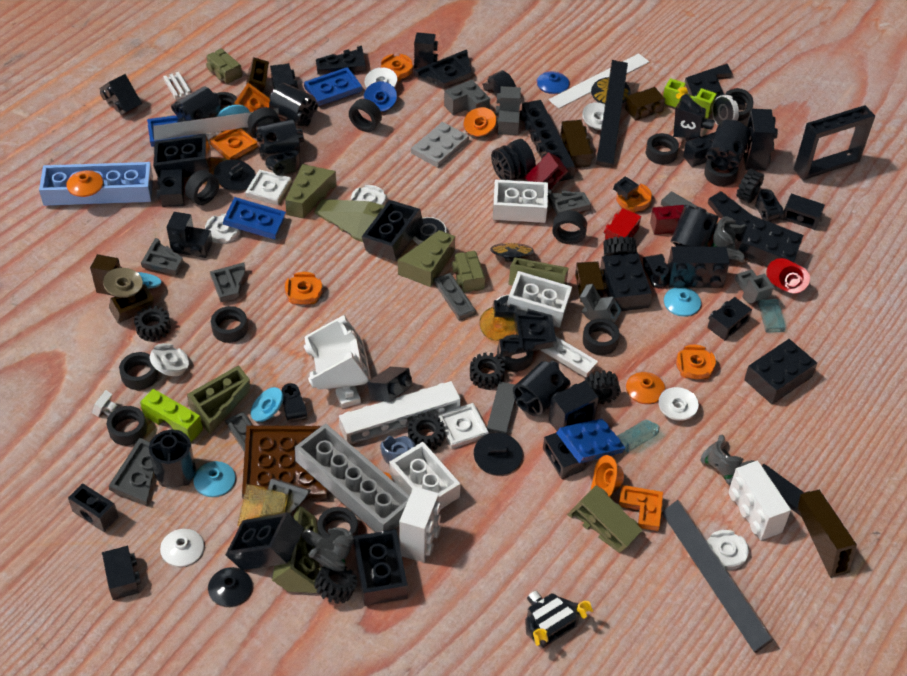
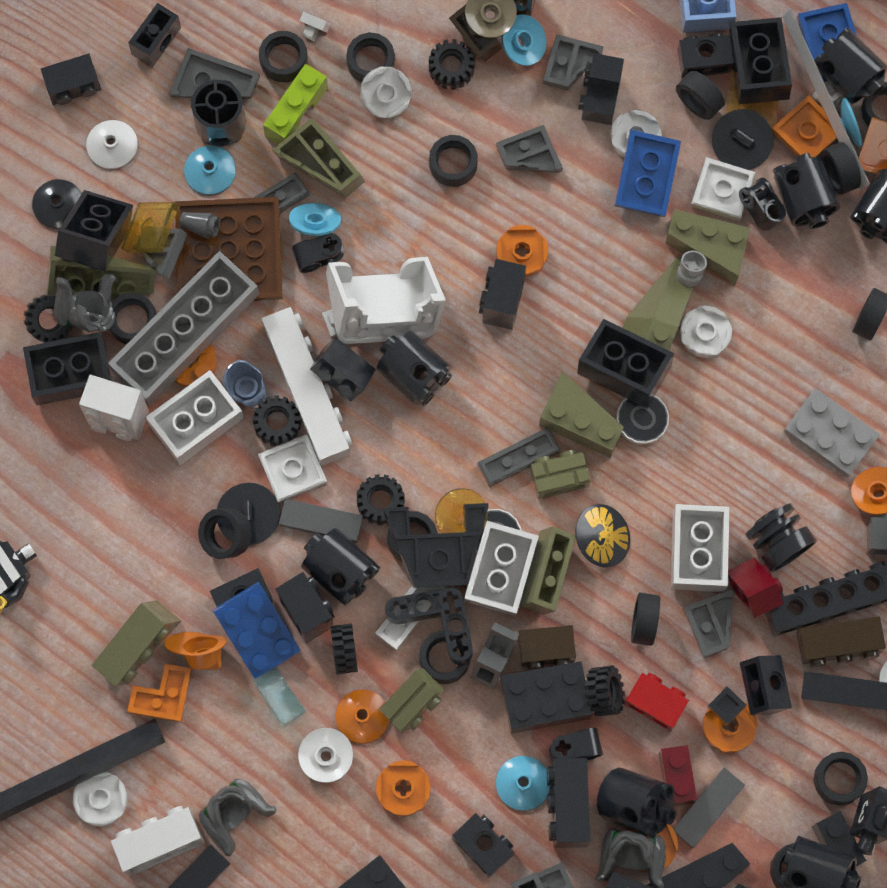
camera: 90 degrees right, 25 degrees up
(265, 470) = (201, 223): none -> dark grey cone
(327, 196) = (691, 268): none -> light grey wheel
(338, 291) = (504, 292): none -> black brick
(391, 342) = (404, 363): none -> black cylinder
(532, 460) = (207, 534): none -> black tyre
(569, 332) = (438, 609): none -> black beam
(607, 174) = (765, 685): none -> black brick
(635, 349) = (412, 700): none -> olive brick

